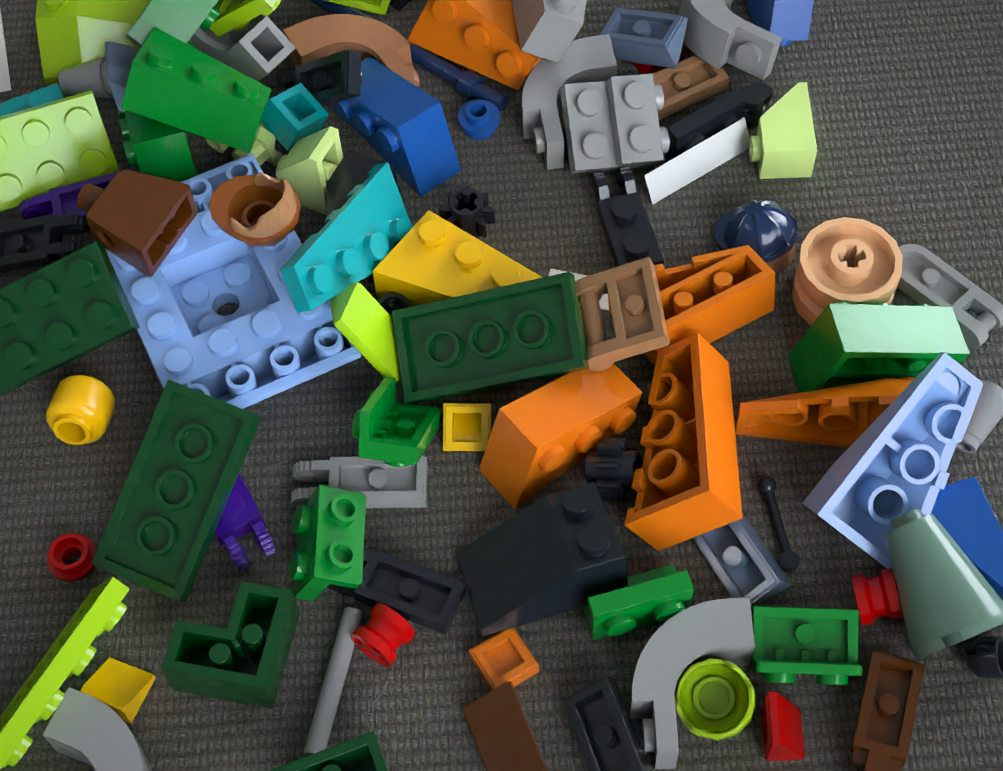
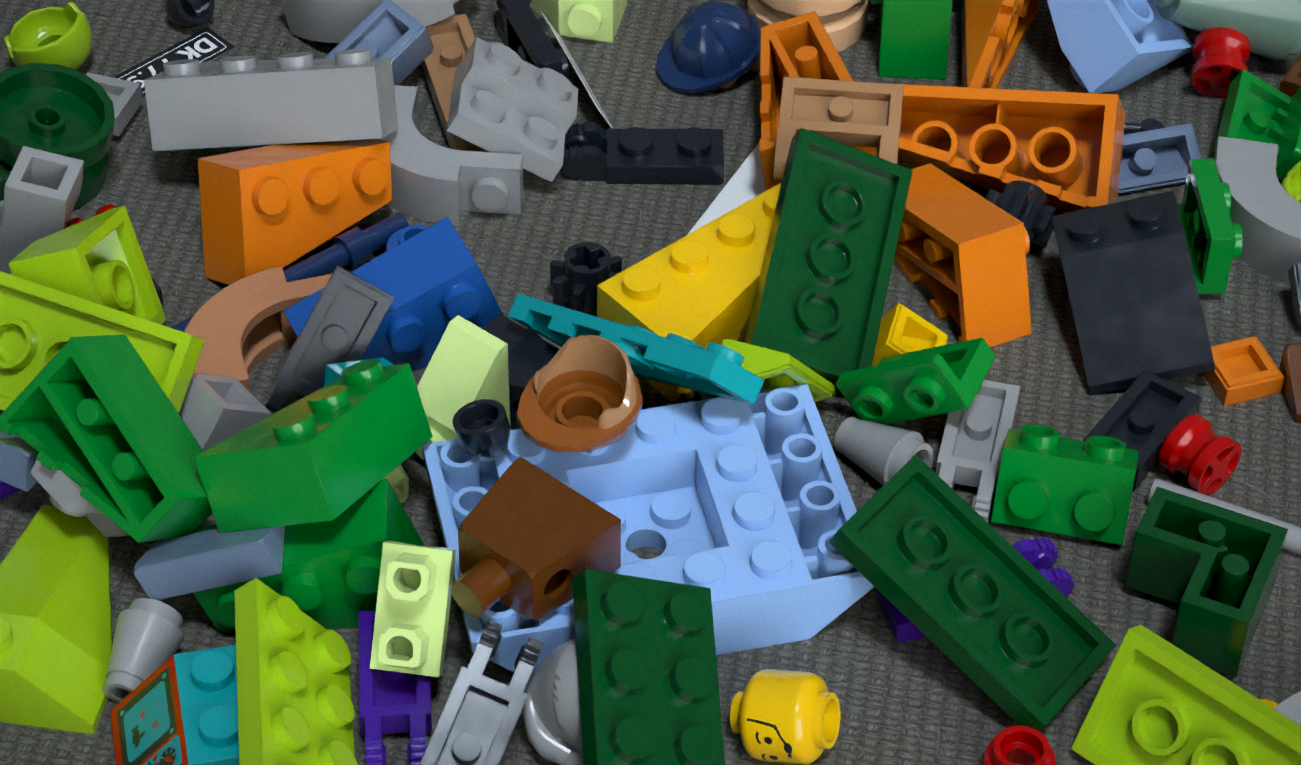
camera: 80 degrees left, 15 degrees down
(93, 167) = (412, 609): none -> yellowish green hips
(240, 164) = (482, 427): none -> black hinge
(336, 427) = (879, 447): none -> light grey cone

